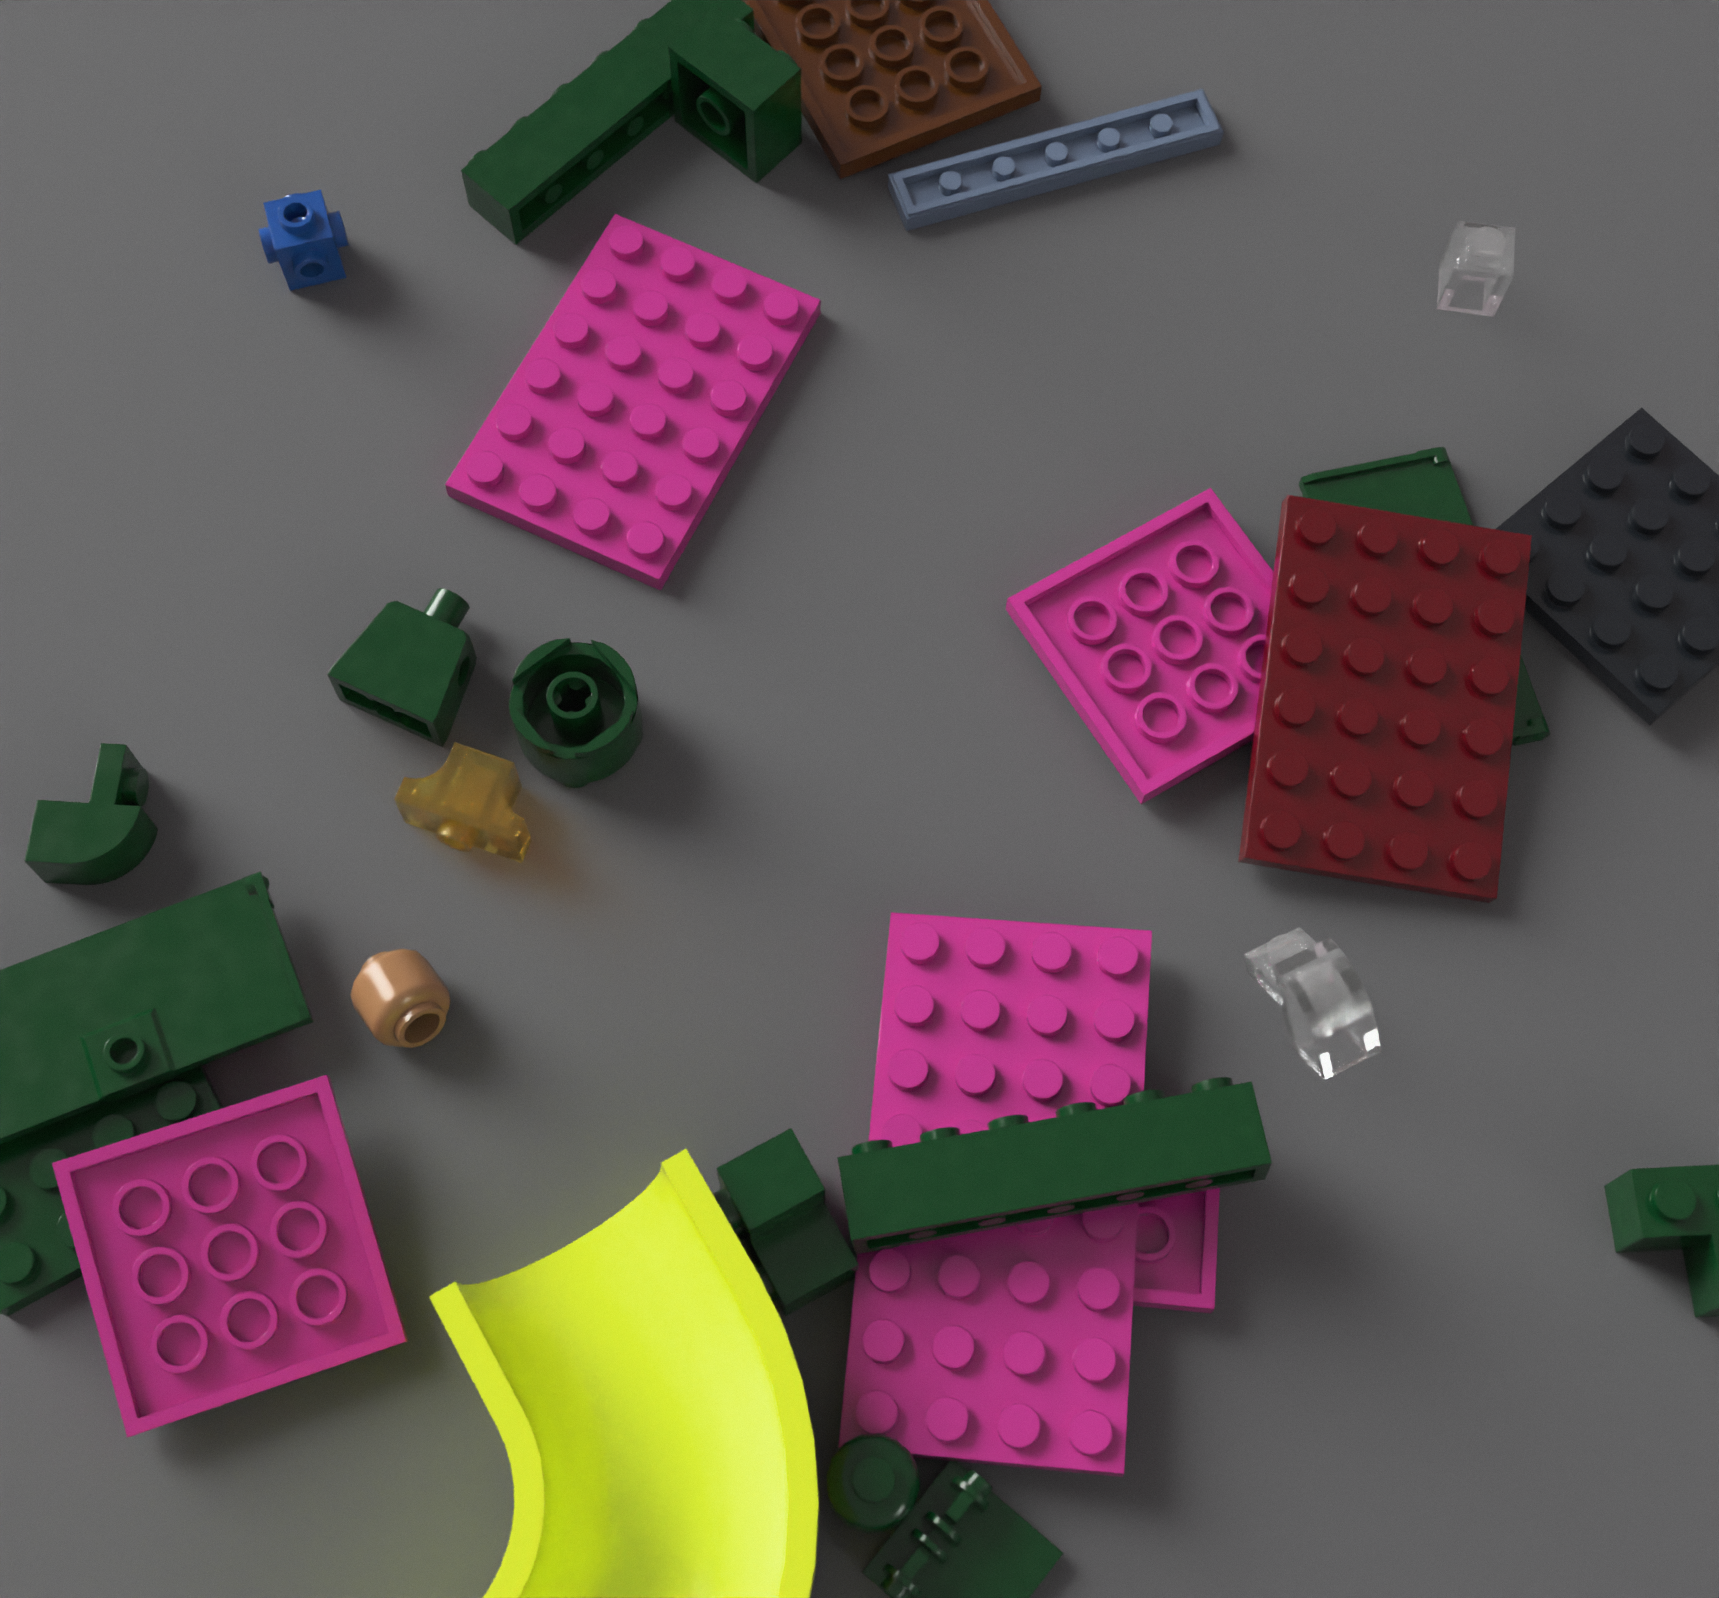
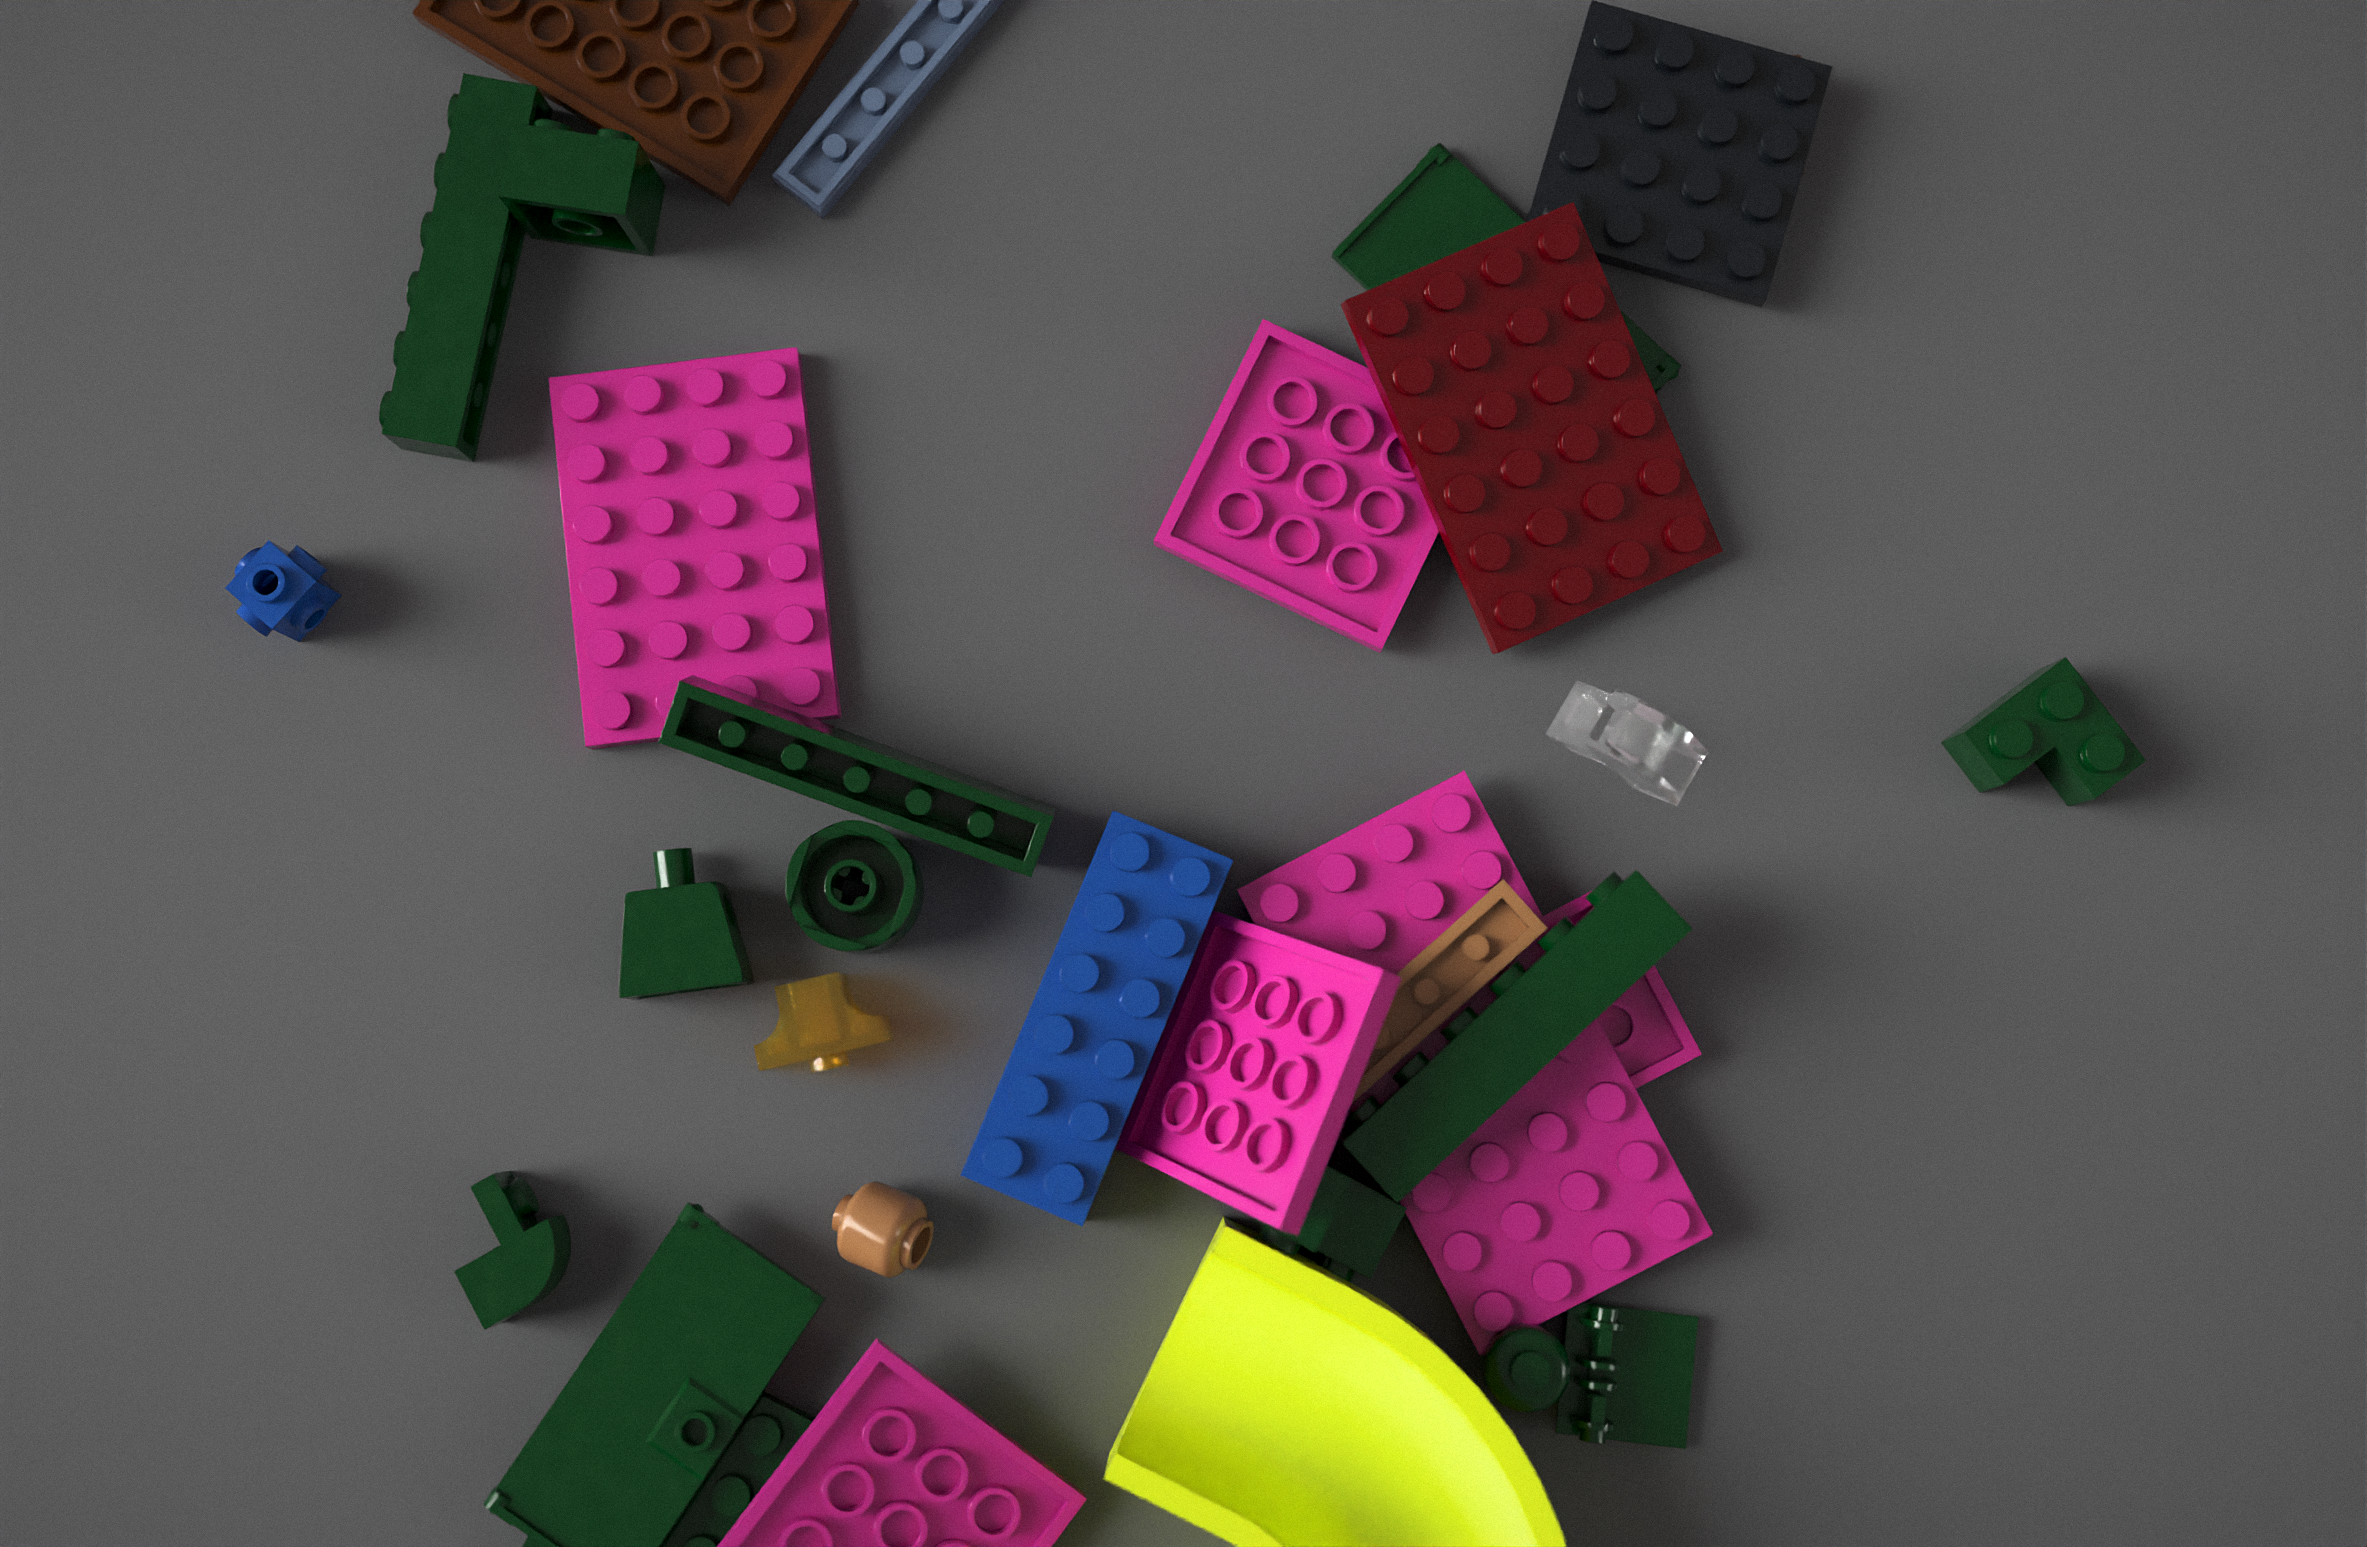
camera: 30 degrees left, 15 degrees up
(642, 622) = (857, 774): none -> dark green brick
(701, 940) = (1097, 1018): none -> blue brick
(808, 1049) = (1258, 1069): none -> dark pink plate
(997, 1083) = (1451, 973): none -> medium nougat plate

